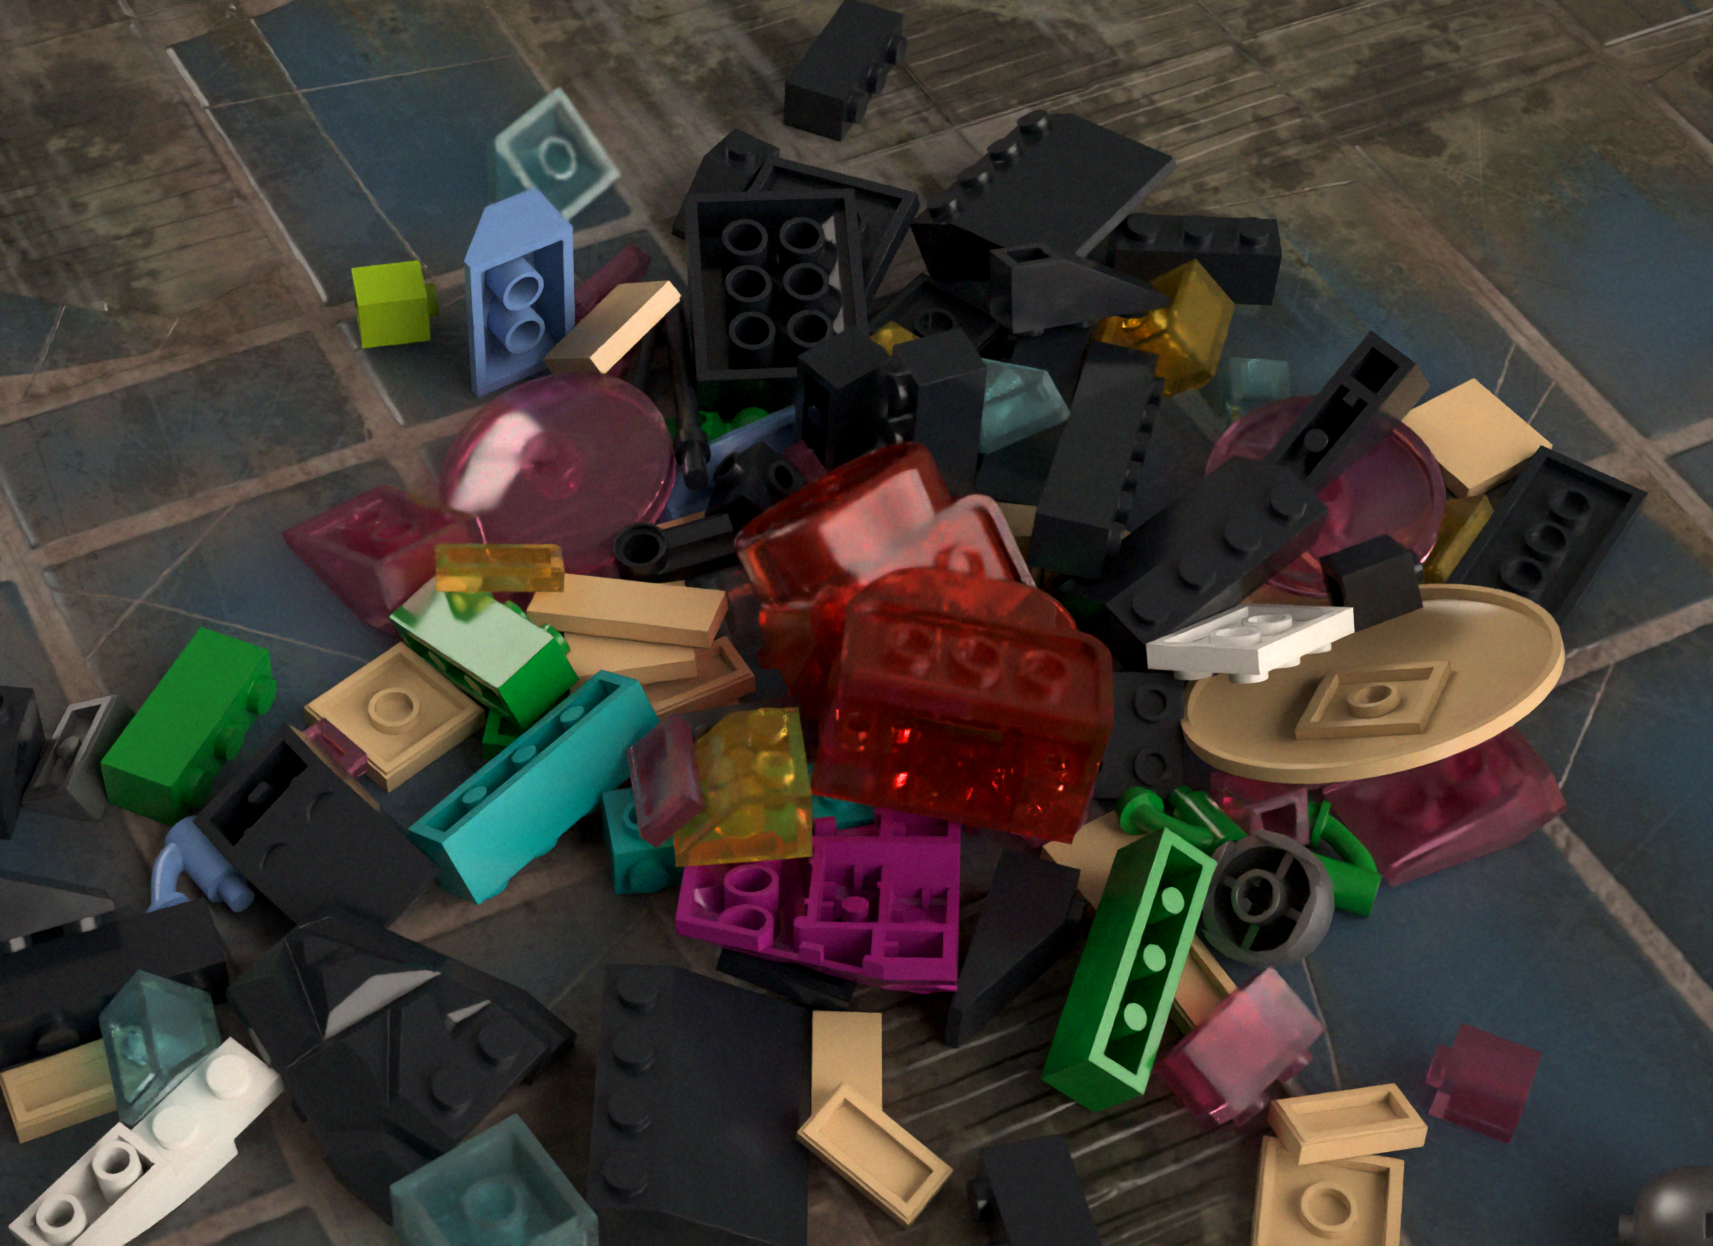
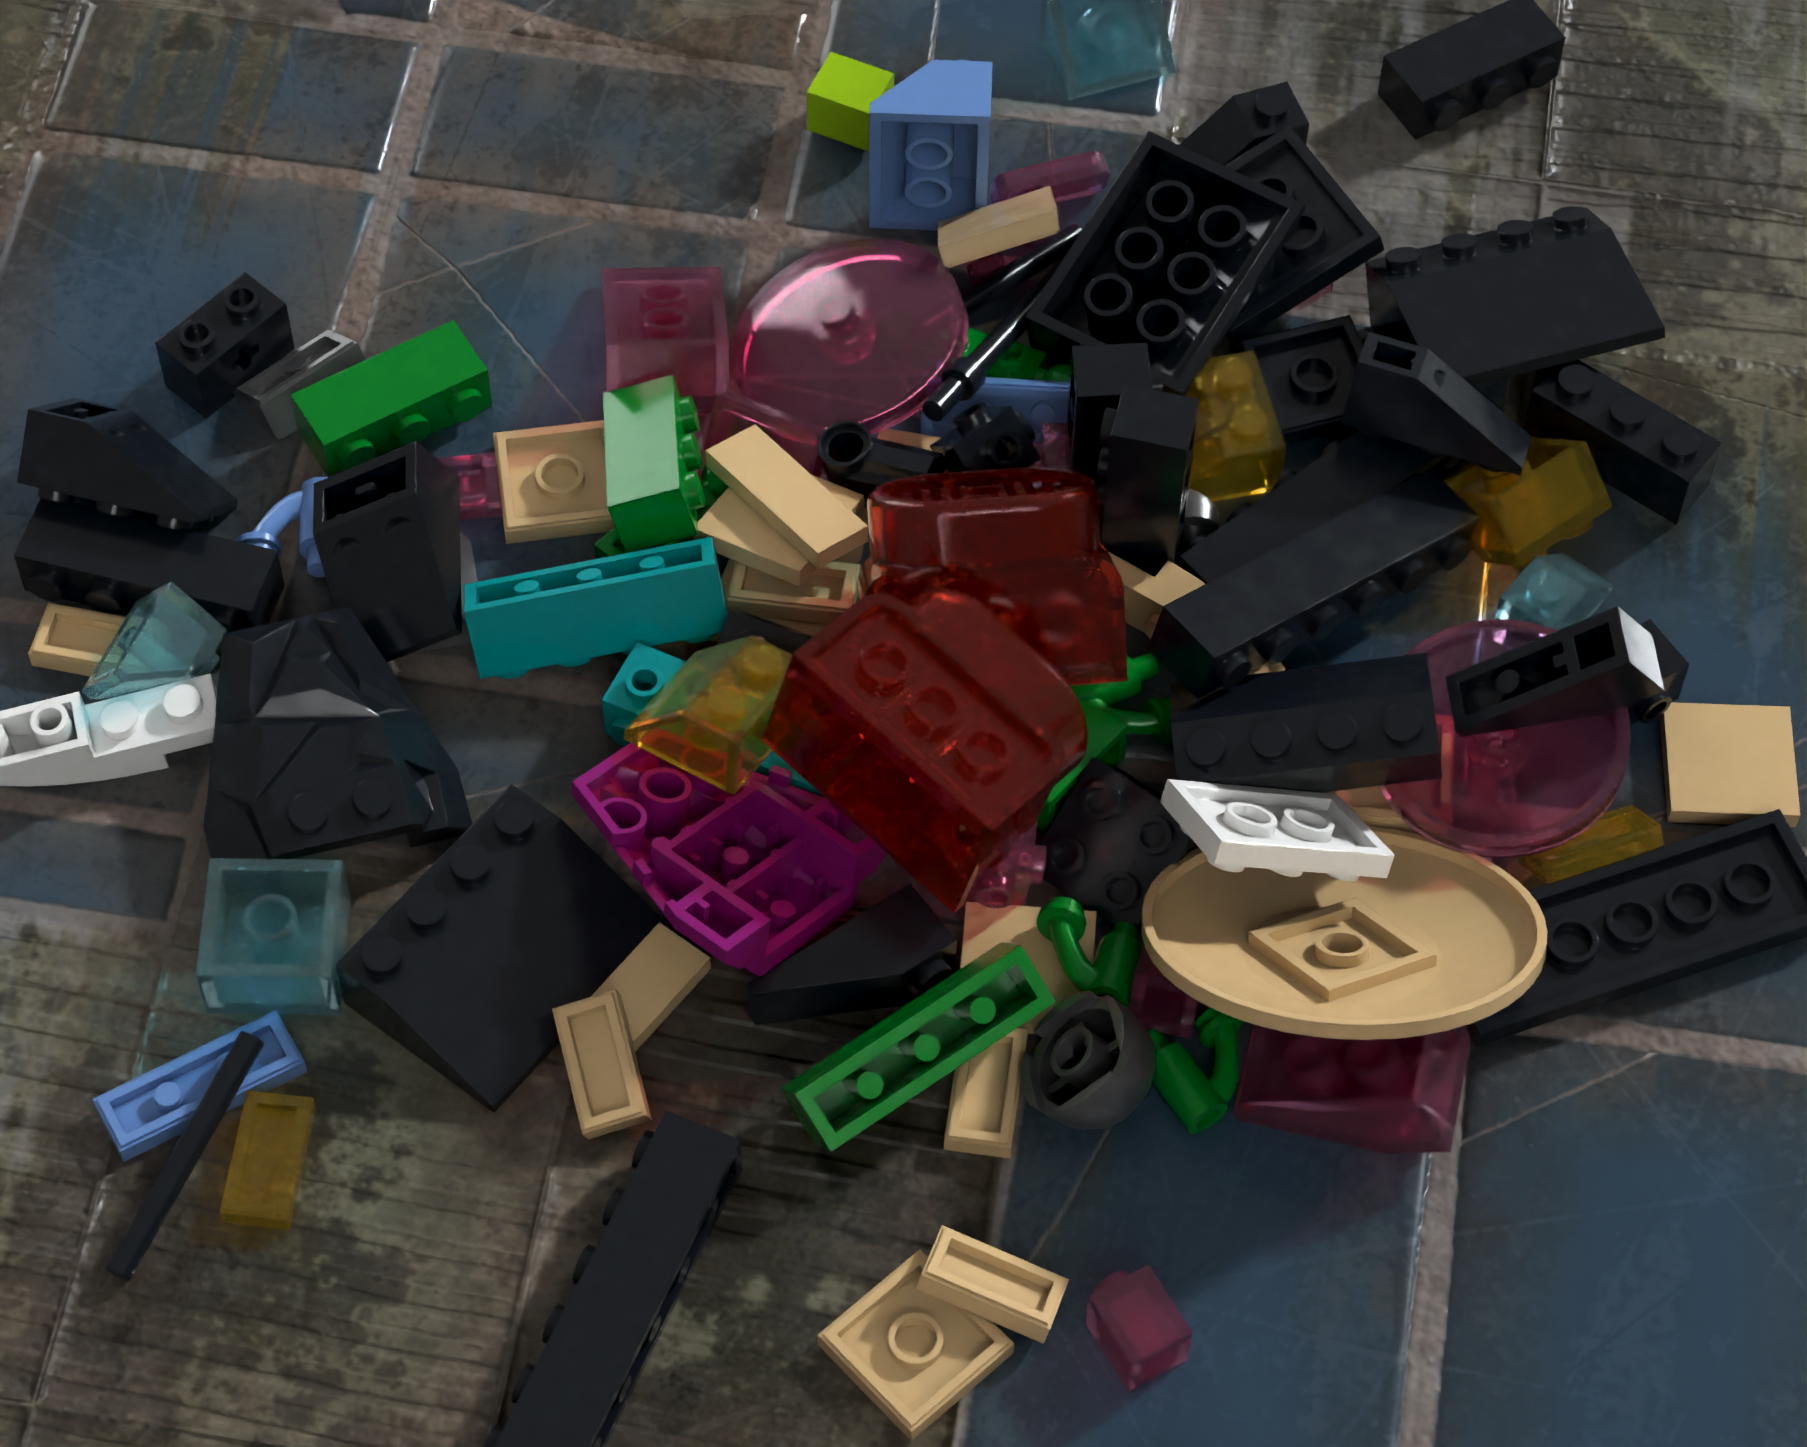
camera: 40 degrees right, 10 degrees up
(498, 568) = (707, 400): clear yellow tile -> none
(665, 780) = (672, 660): clear pink tile -> none
(1017, 405) = (1251, 481): clear light blue slope -> none
(1240, 1050) = (955, 1168): clear pink brick -> none
(1374, 579) = (1446, 842): black brick -> none

